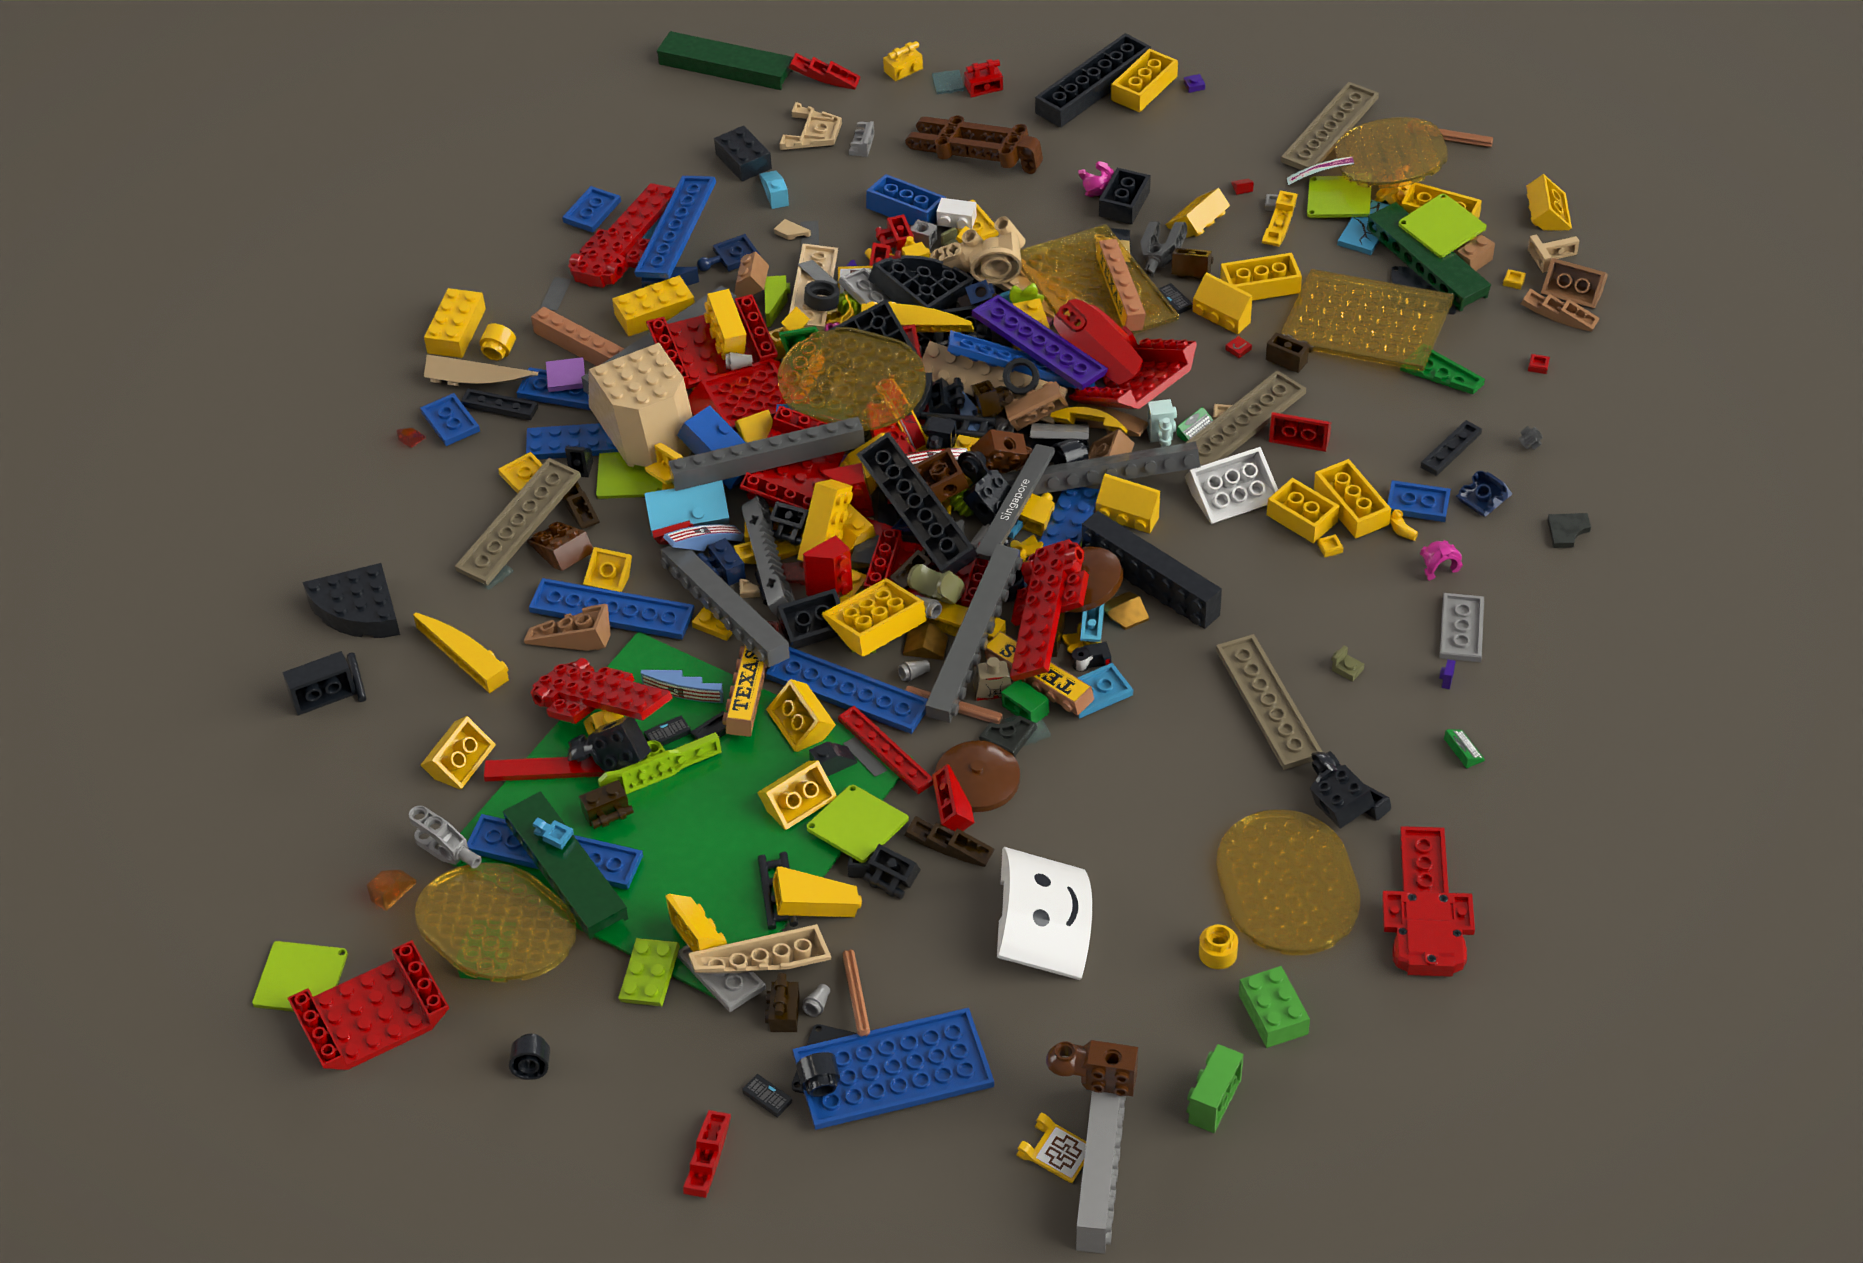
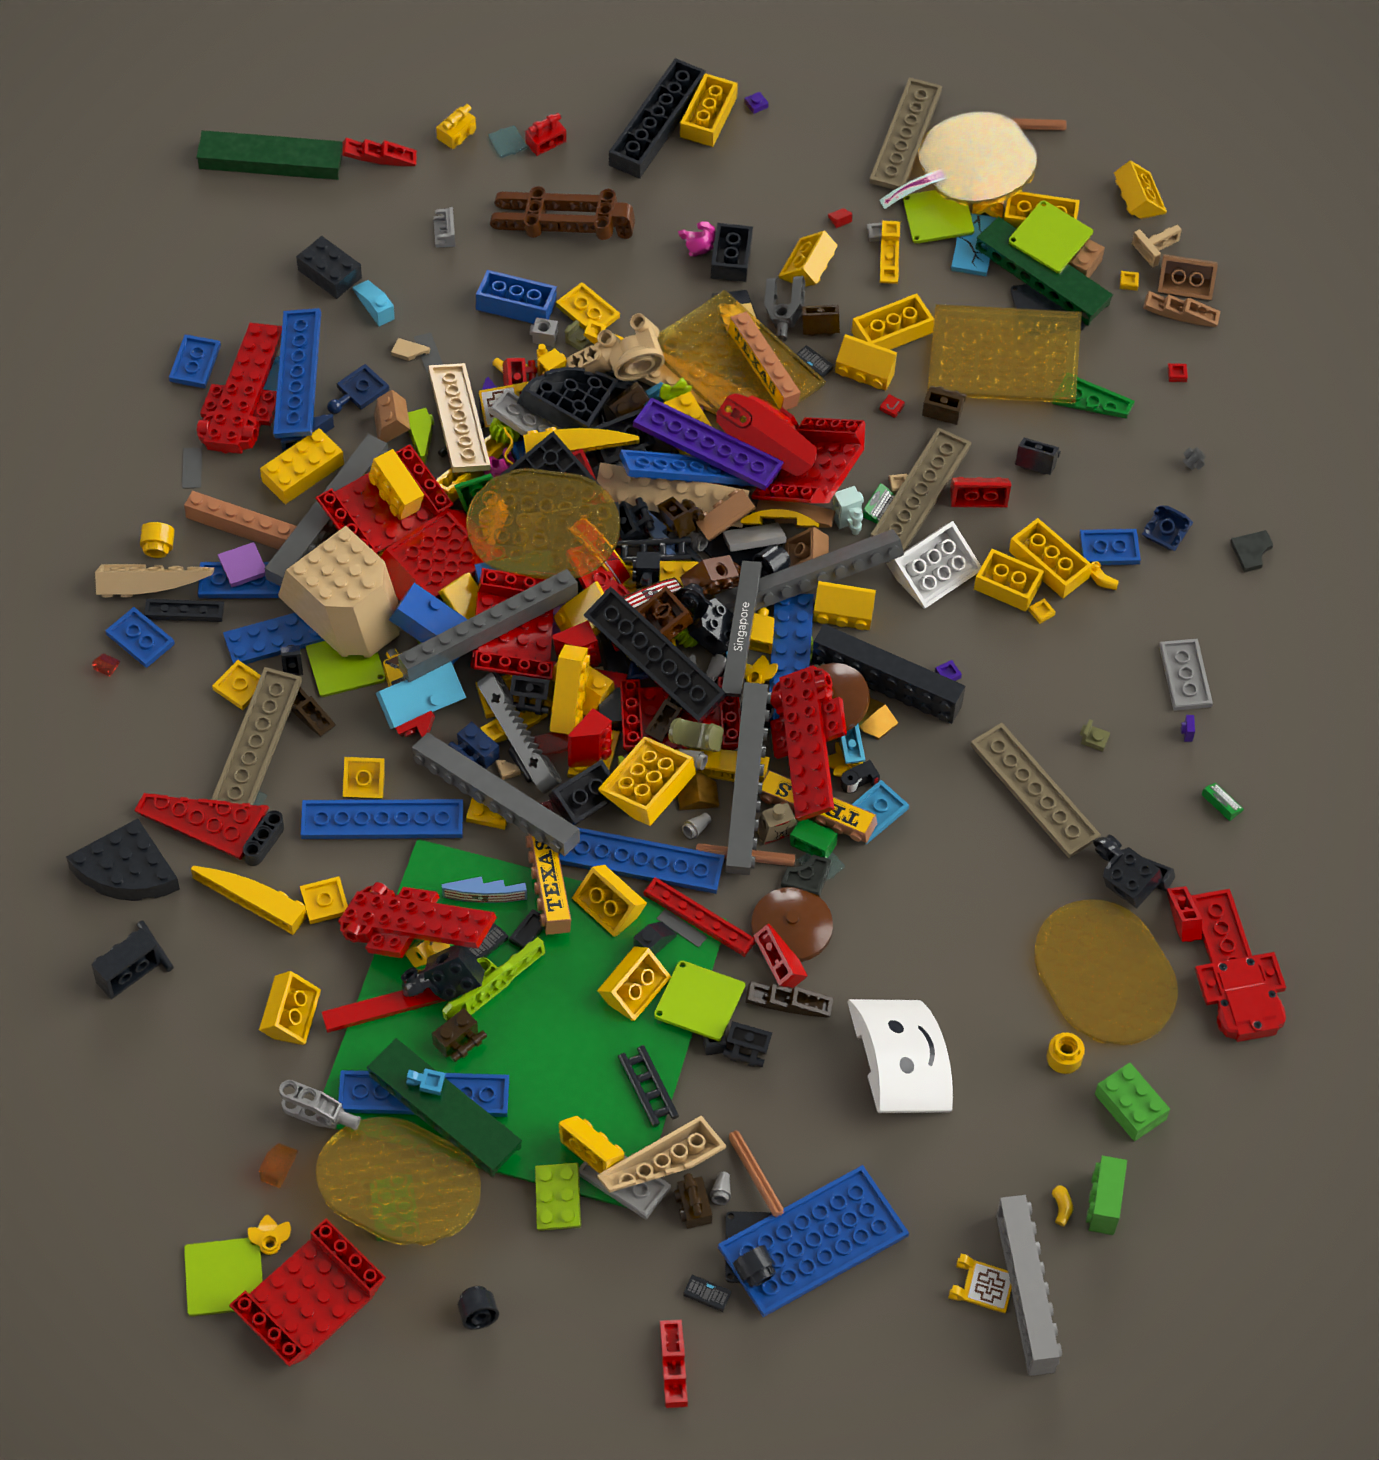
camera: 20 degrees left, 10 degrees up
(357, 947) = (269, 1233): none -> yellow plate
(448, 580) = (212, 822): none -> red wing
(454, 323) = (103, 524): yellow brick -> none
(493, 603) = (263, 846): none -> black beam
(528, 666) = (324, 900): none -> yellow plate
(561, 545) = (307, 758): reddish brown slope -> none
(579, 632) = (361, 850): medium nougat wedge -> none
(661, 469) = (386, 652): yellow bracket -> none
(699, 536) = (448, 722): slope -> none
(737, 360) = (416, 520): light grey cone -> none
(795, 320) = (462, 467): yellow brick -> none
(813, 895) = (682, 1086): yellow slope -> none
(816, 271) = (458, 400): sticker -> none
(819, 130) = (397, 223): tan wing -> none
(821, 303) = (476, 439): black tyre -> none
(897, 231) = (522, 337): red brick -> none
(956, 213) = (573, 304): white brick -> none
(972, 289) = (625, 398): dark blue brick -> none
(1017, 362) = (690, 488): black tyre -> none
(1100, 1064) = (1009, 1205): reddish brown brick -> none
(1170, 1091) = (1065, 1205): none -> yellow arm
(1217, 578) = (949, 670): none -> dark purple plate
(1368, 409) = (1037, 456): none -> black brick
(1388, 843) = (1185, 914): none -> red slope
(1437, 553) = (1146, 604): dark pink helmet -> none
(1451, 448) = (1123, 482): black plate -> none

